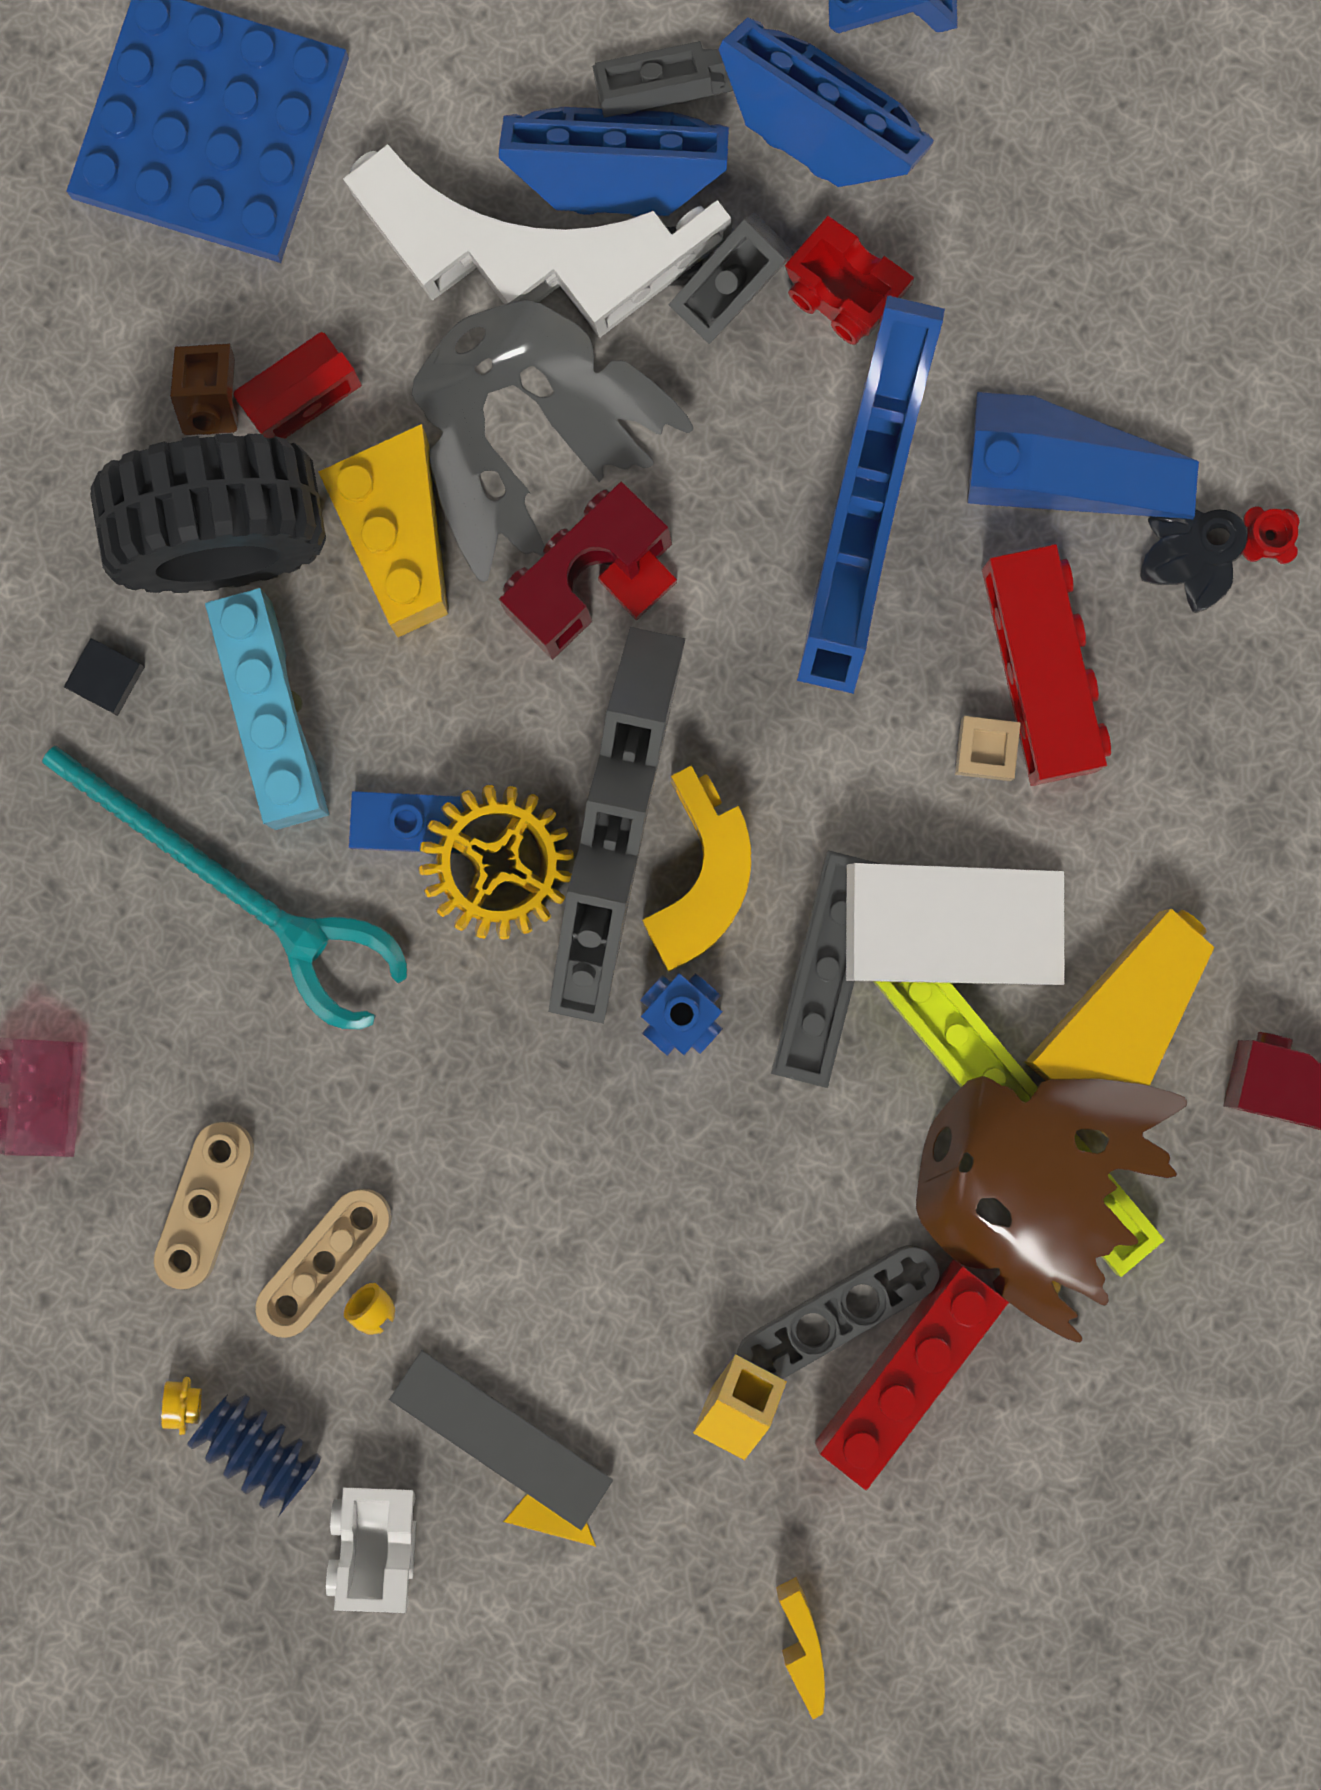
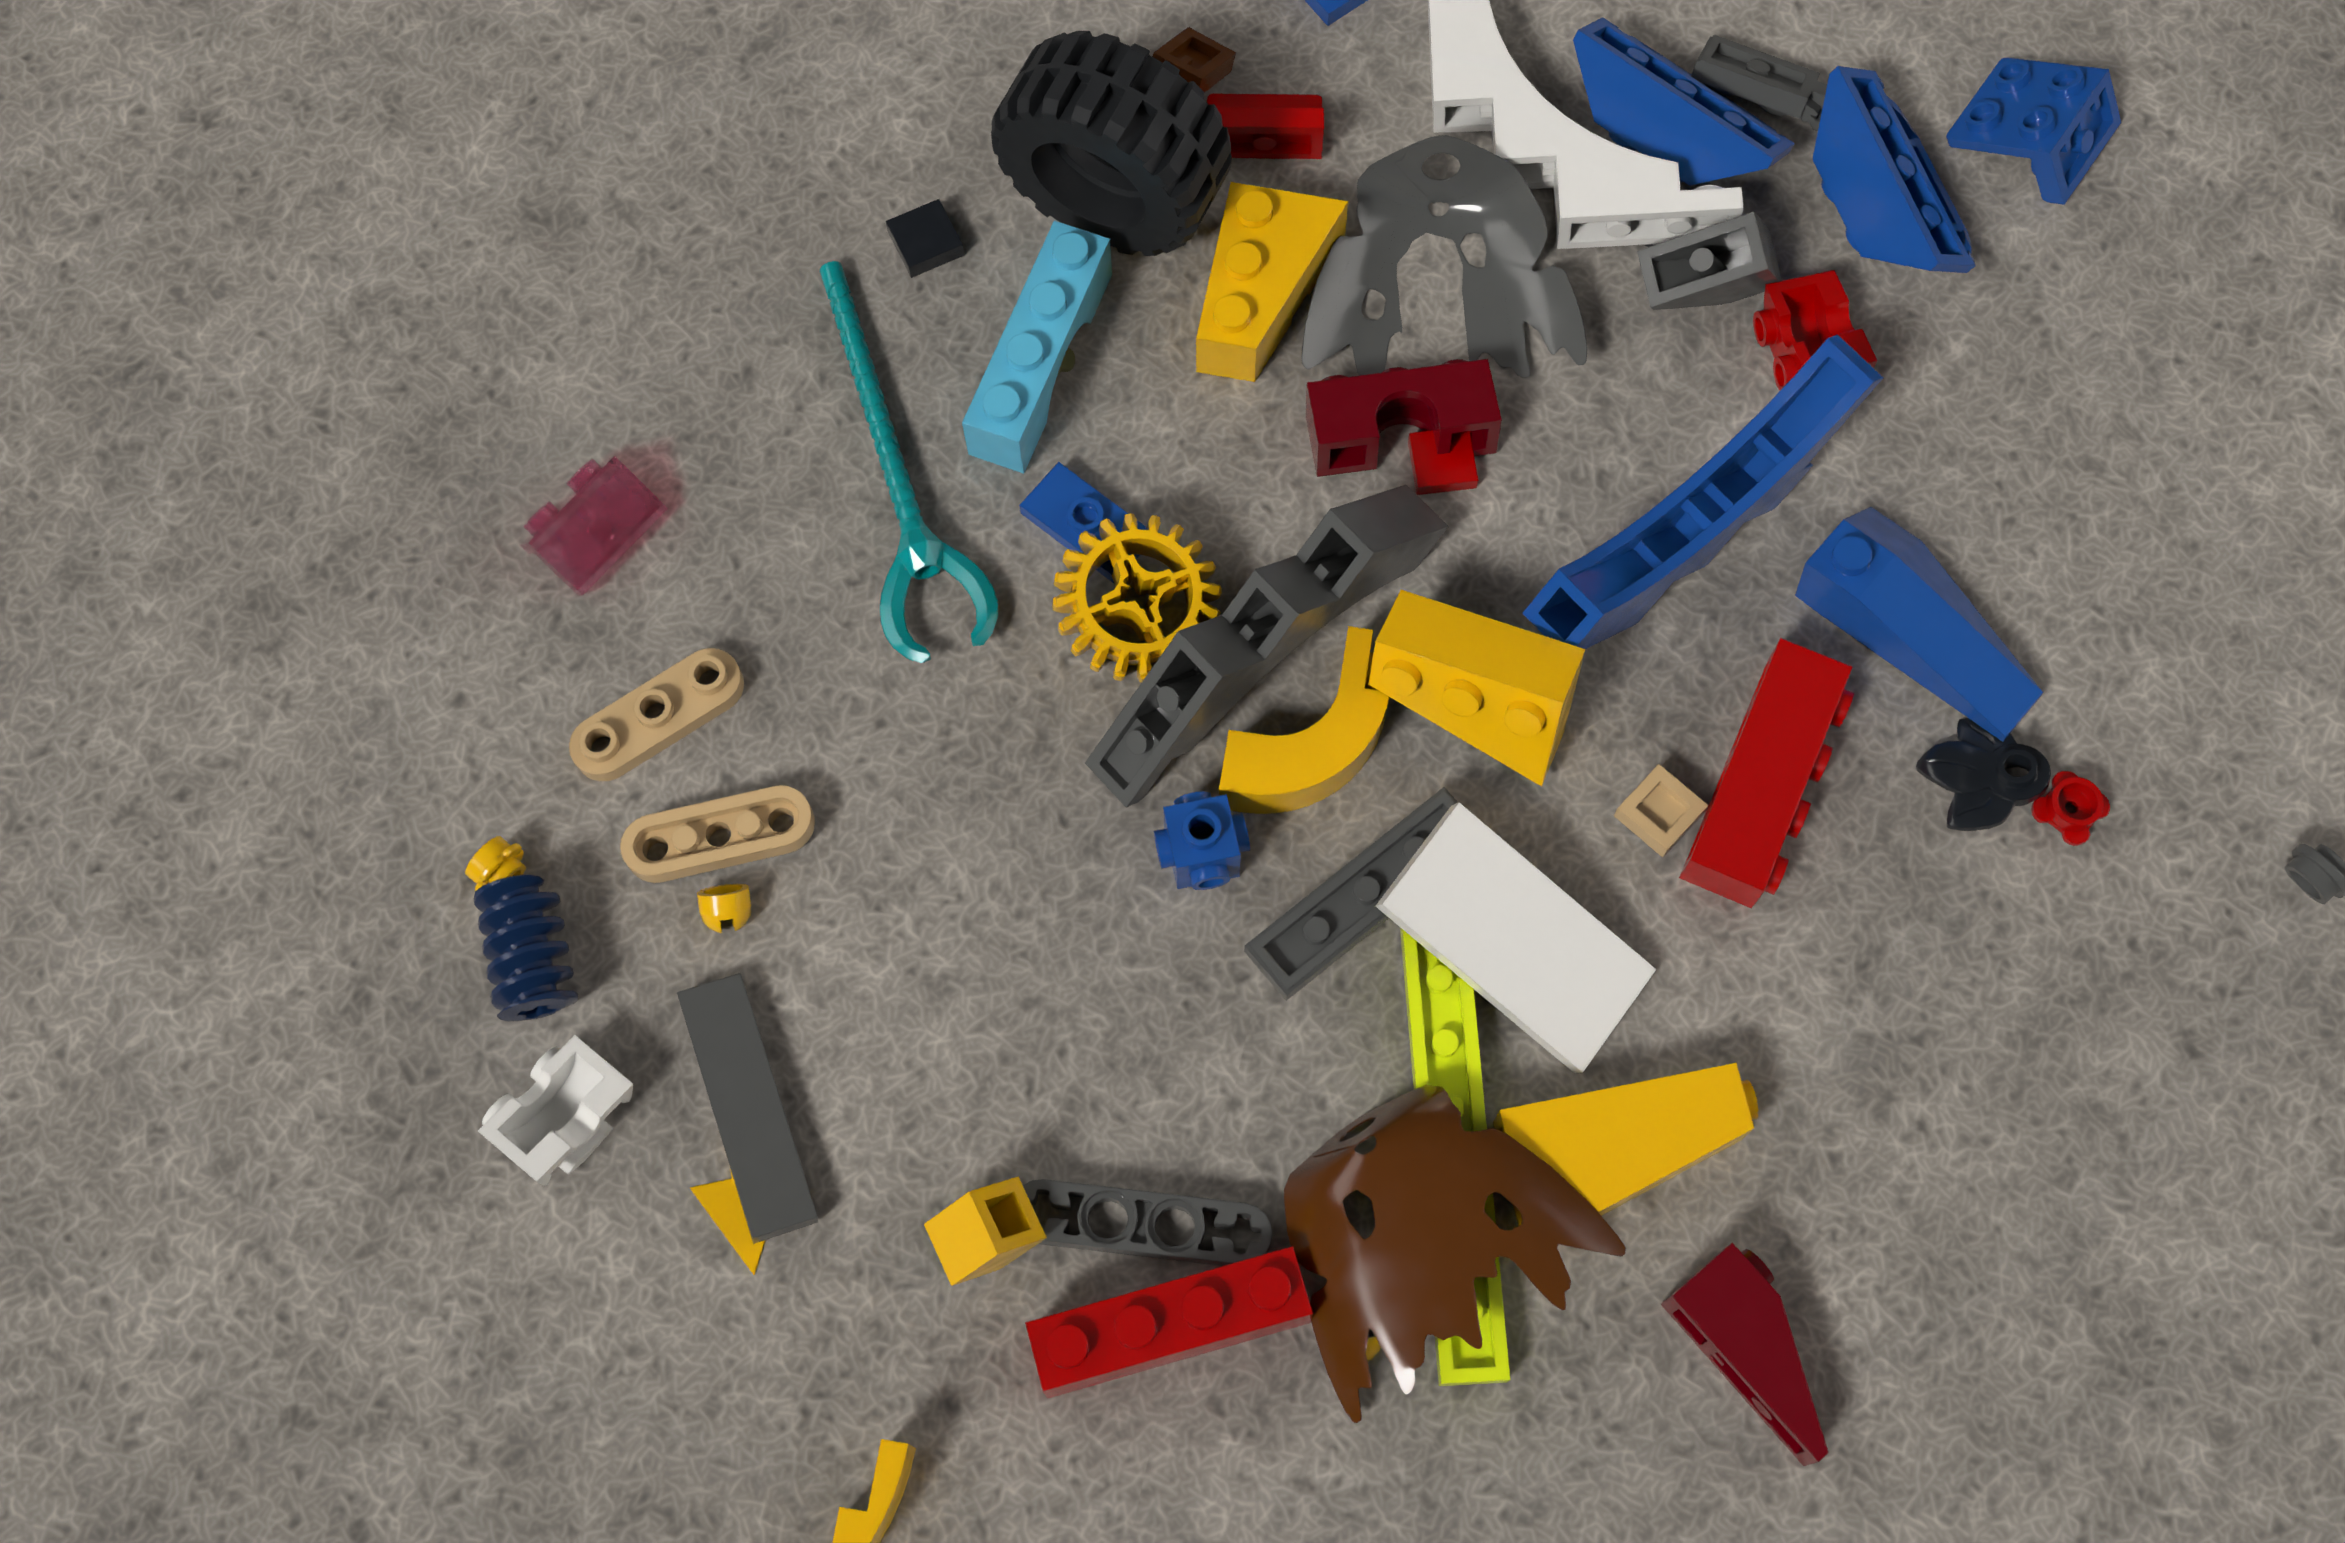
camera: 40 degrees right, 15 degrees down
(797, 752) = (1479, 679): none -> yellow wedge

